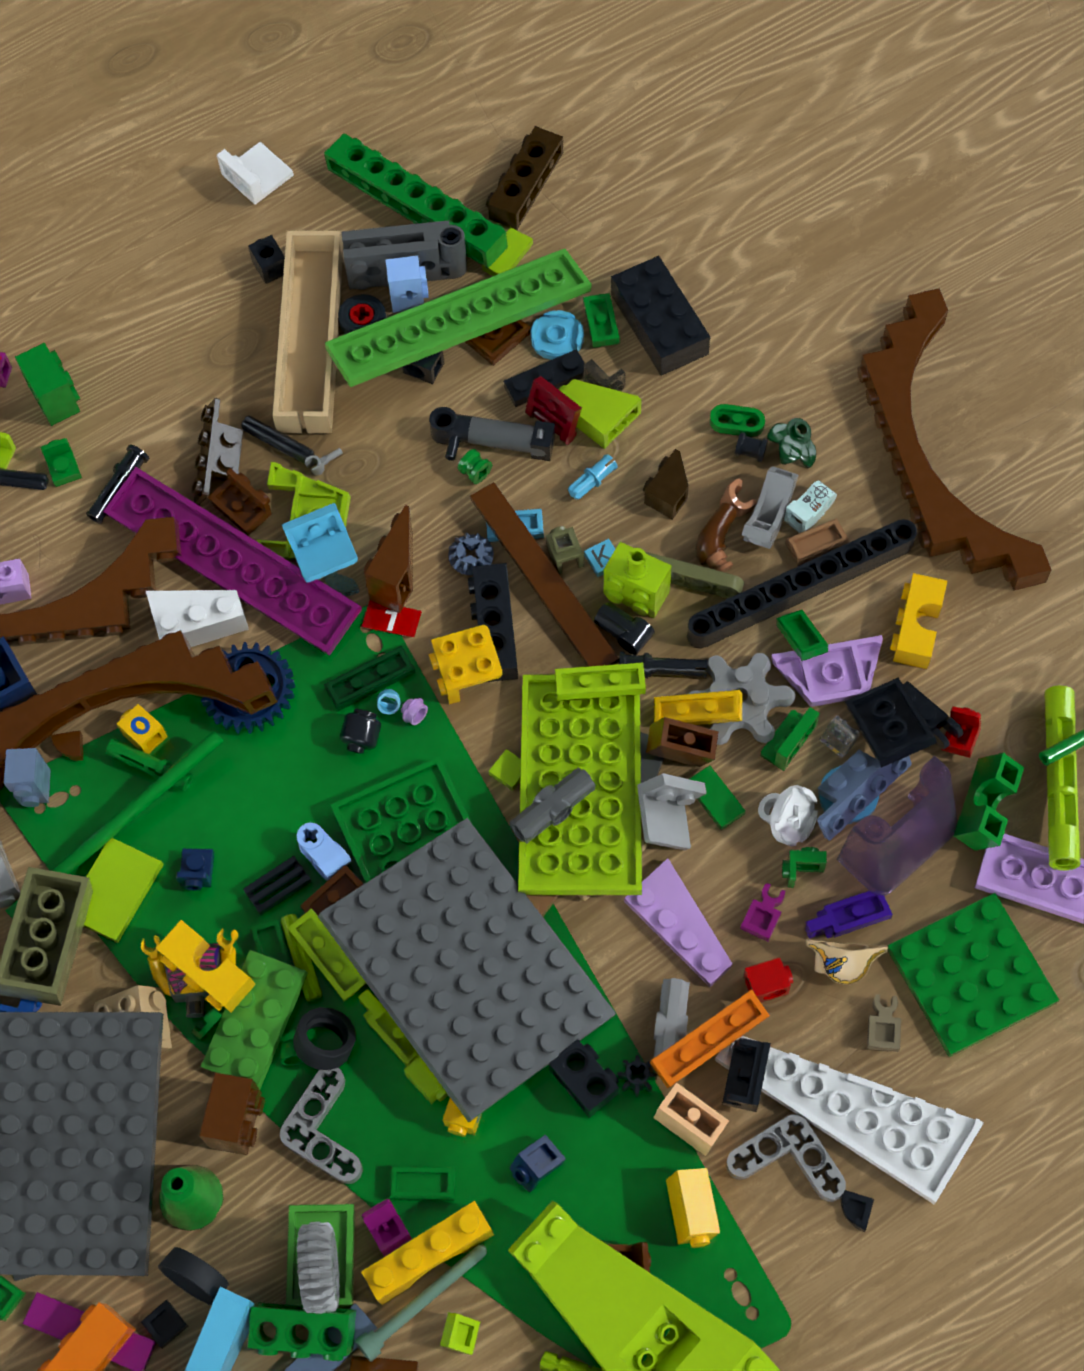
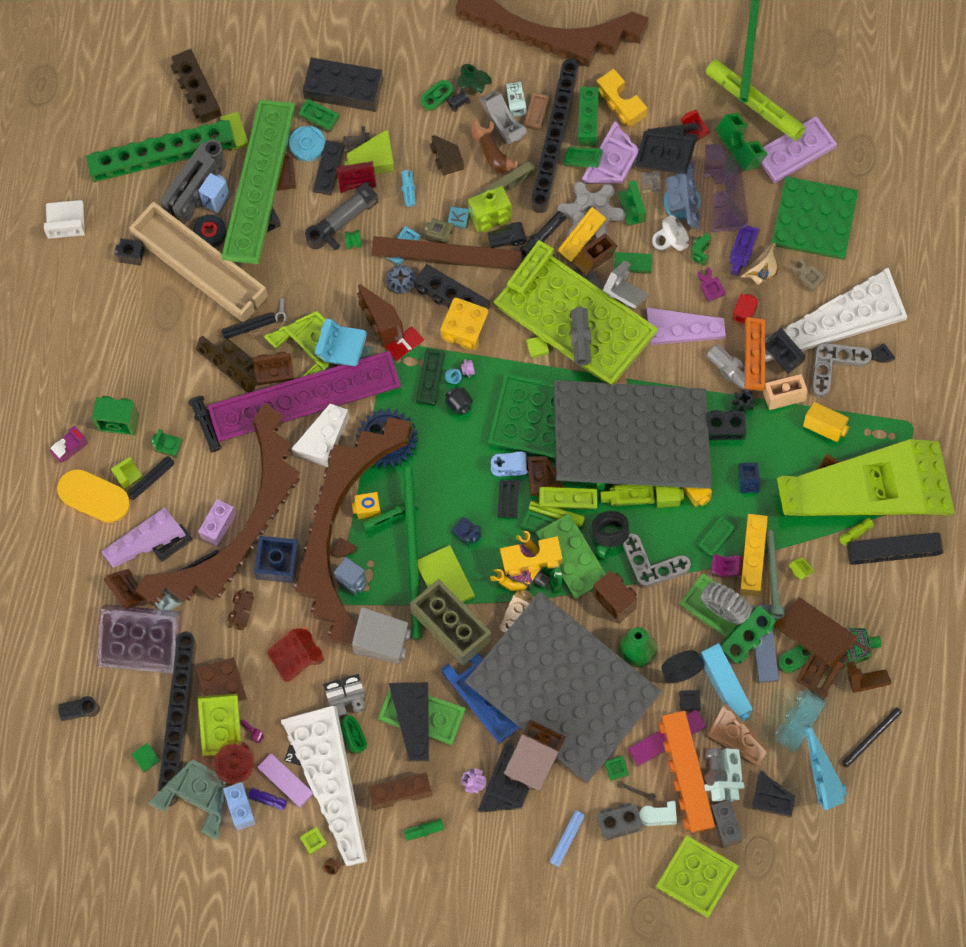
camera: 50 degrees left, 5 degrees up
(860, 601) = (588, 116): none -> green brick

